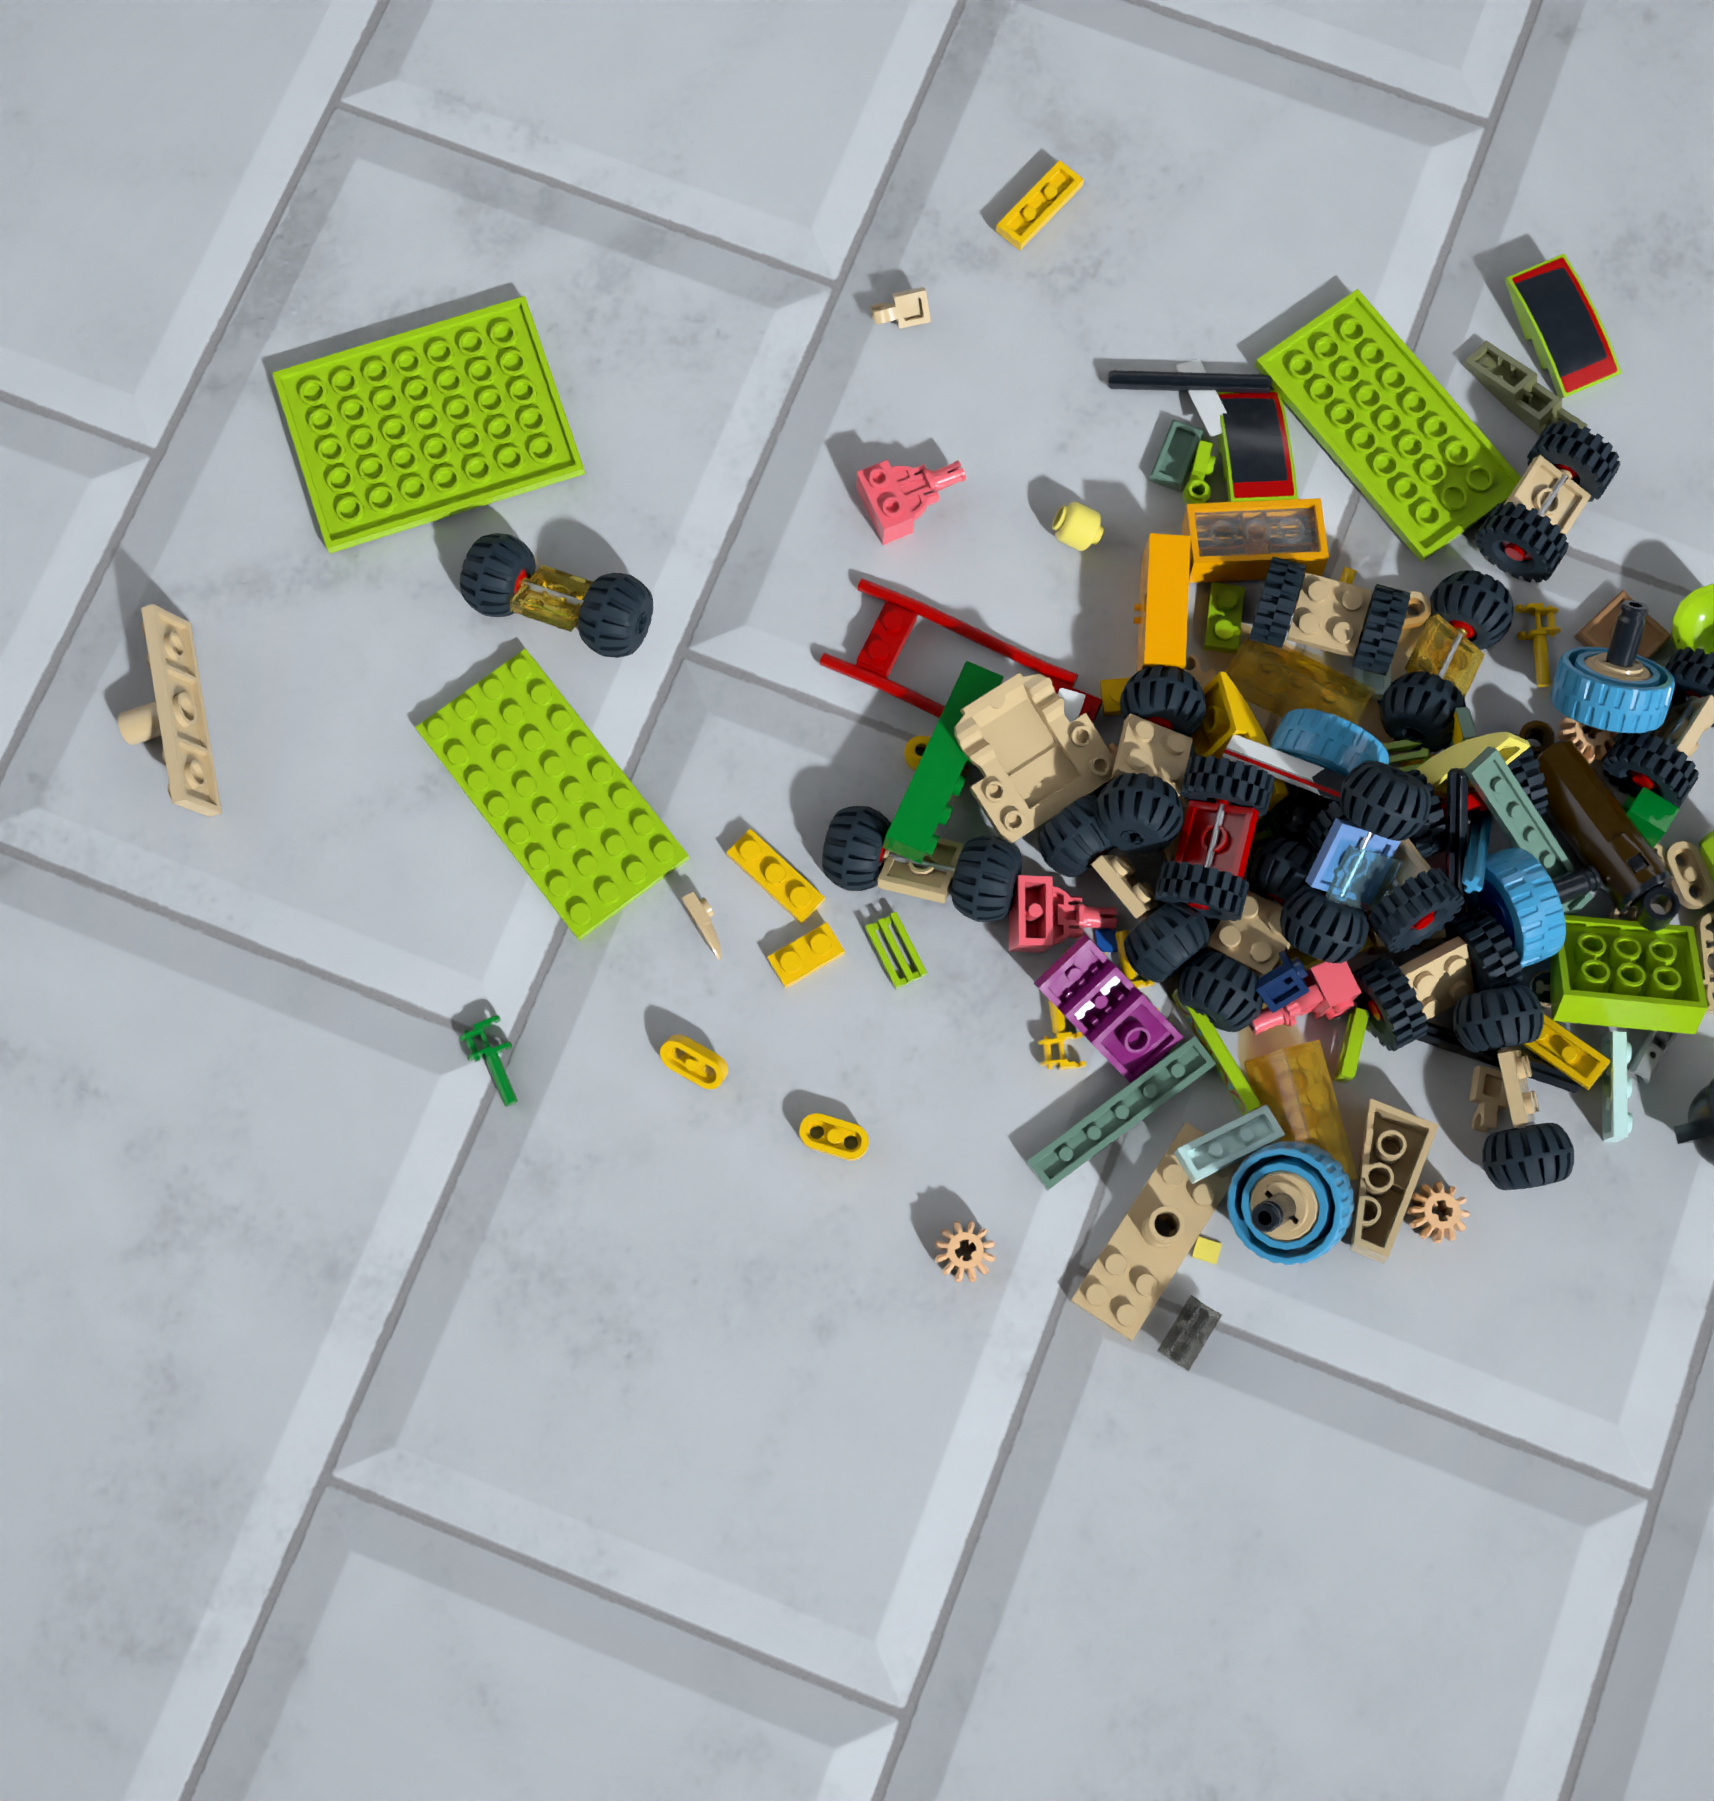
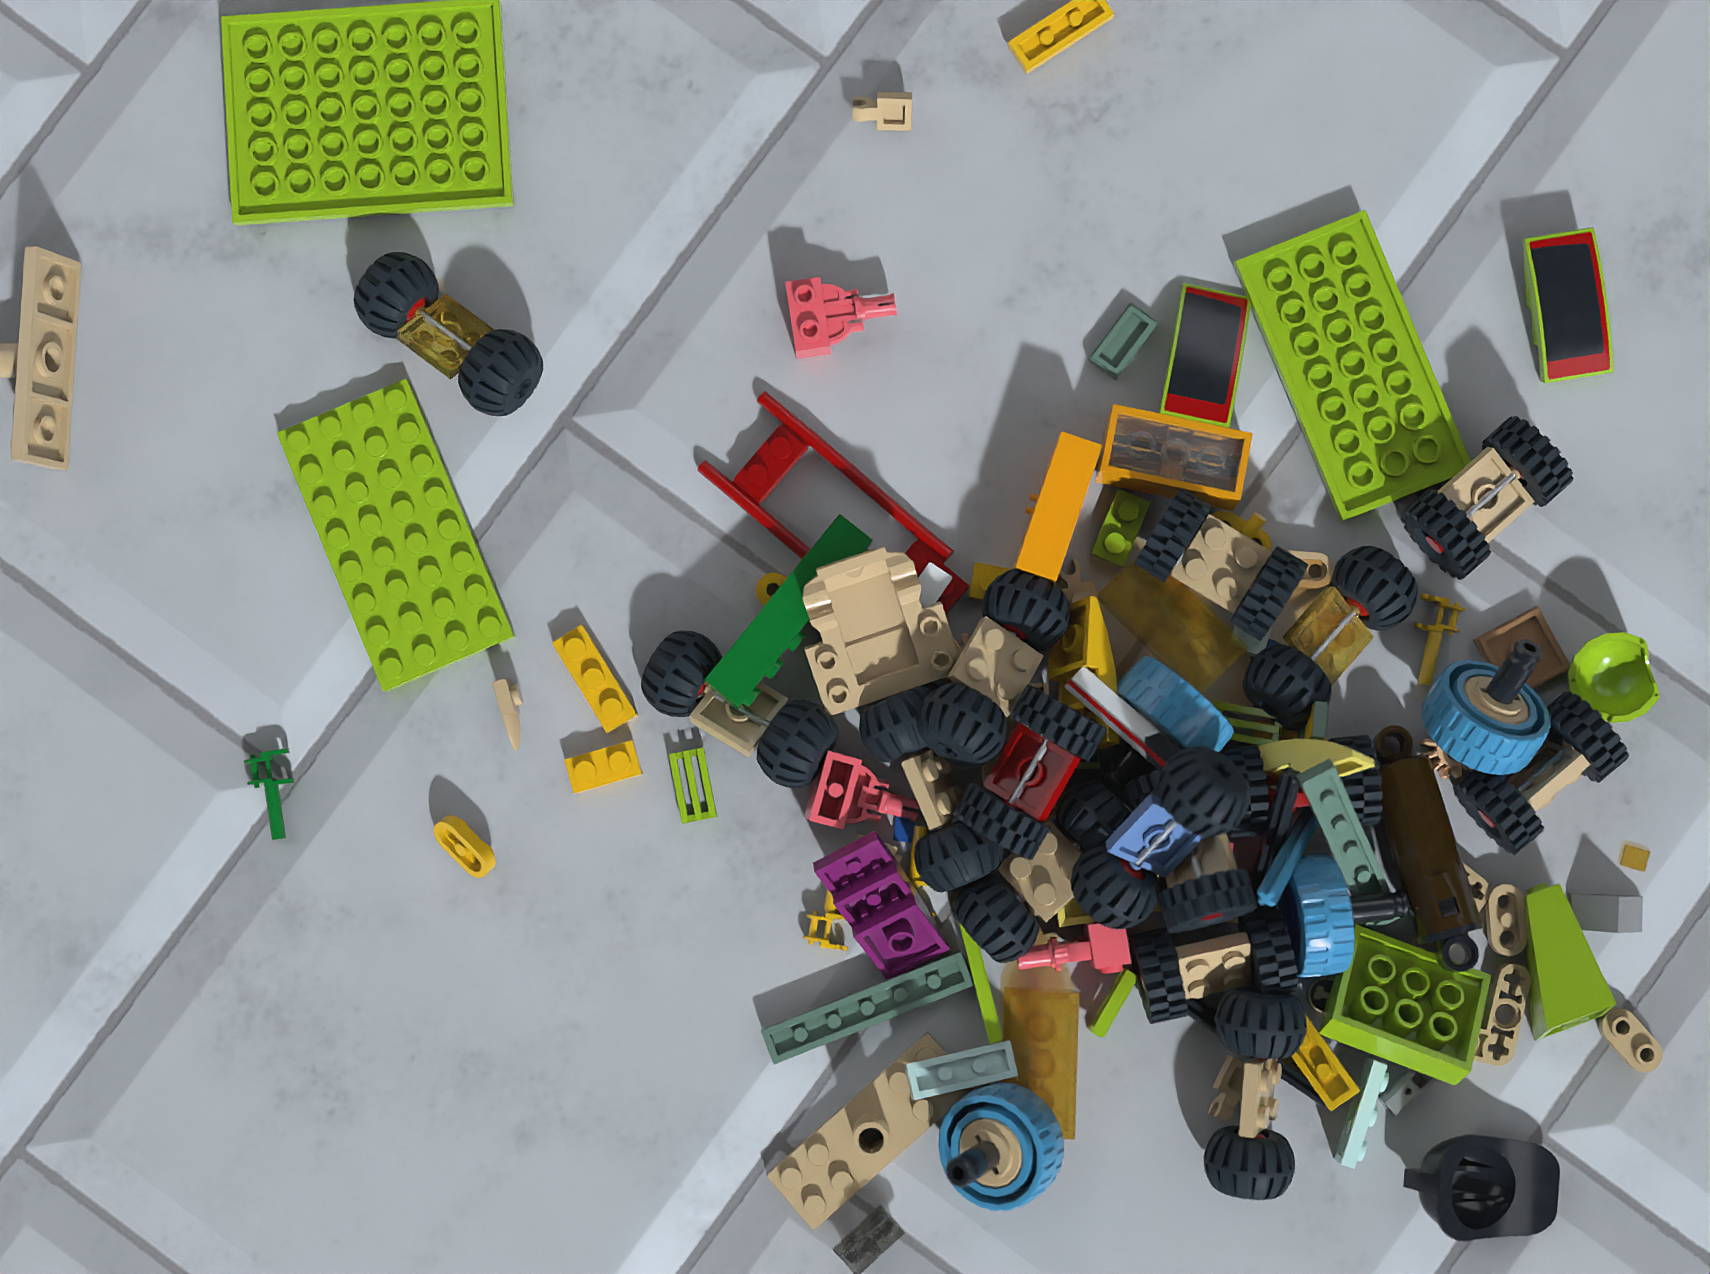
camera: 20 degrees right, 10 degrees up
(835, 1134) = (581, 956): yellow plate -> none
(954, 1245) = (686, 1110): light nougat gear -> none
(1078, 526) = (998, 394): light yellow head -> none
(1189, 381) = (1159, 265): black axle -> none
(1202, 465) = (1145, 362): lime plate -> none
(1206, 401) = (1169, 283): white sticker -> none
(1206, 1250) = (912, 1160): light yellow window -> none
(1283, 983) = (1057, 933): dark blue bracket -> none
(1363, 878) = (1163, 857): clear light blue piece -> none
(1389, 1169) = (1110, 1138): tan wedge -> none
(1431, 1222) = (1135, 1197): light nougat gear -> none
(1517, 388) = (1502, 366): olive slope -> none
(1650, 814) = (1482, 852): green brick -> none

